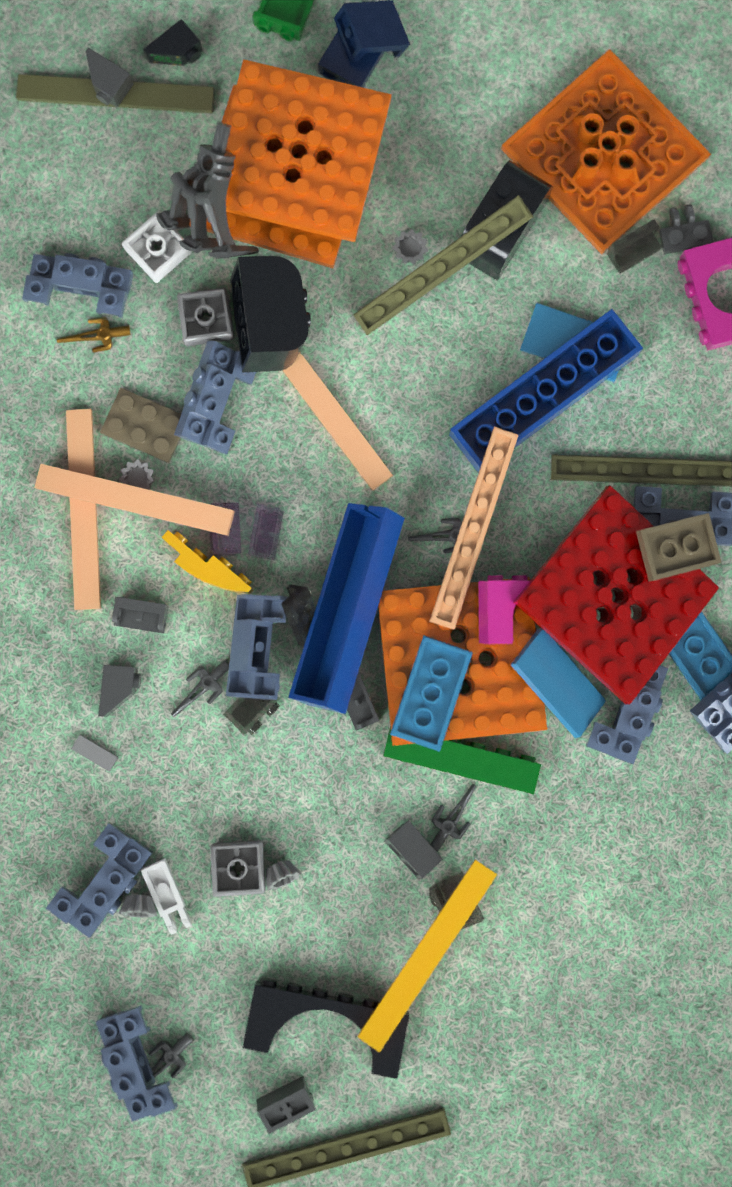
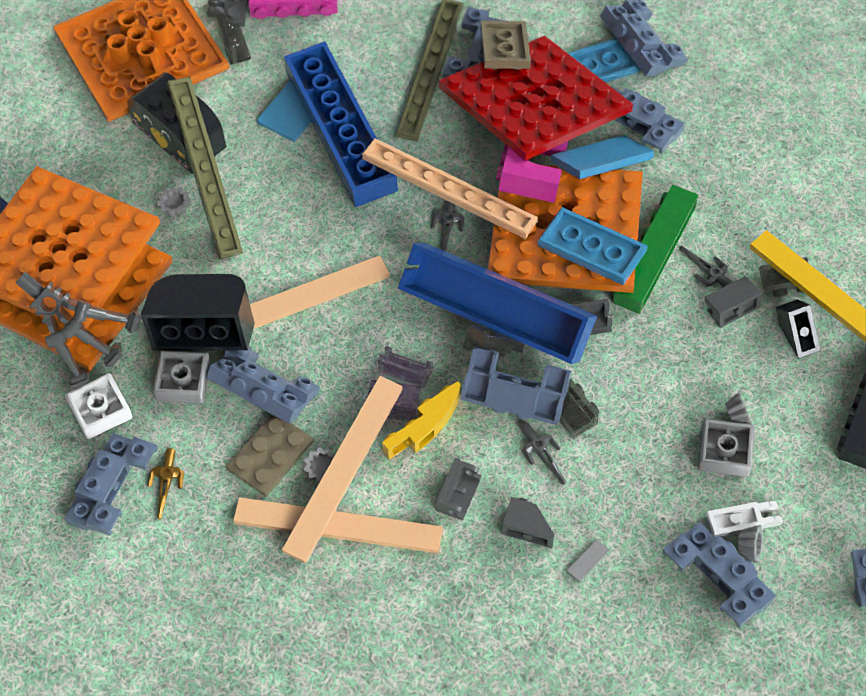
camera: 75 degrees left, 25 degrees down
(396, 922) = (798, 327): none -> black slope

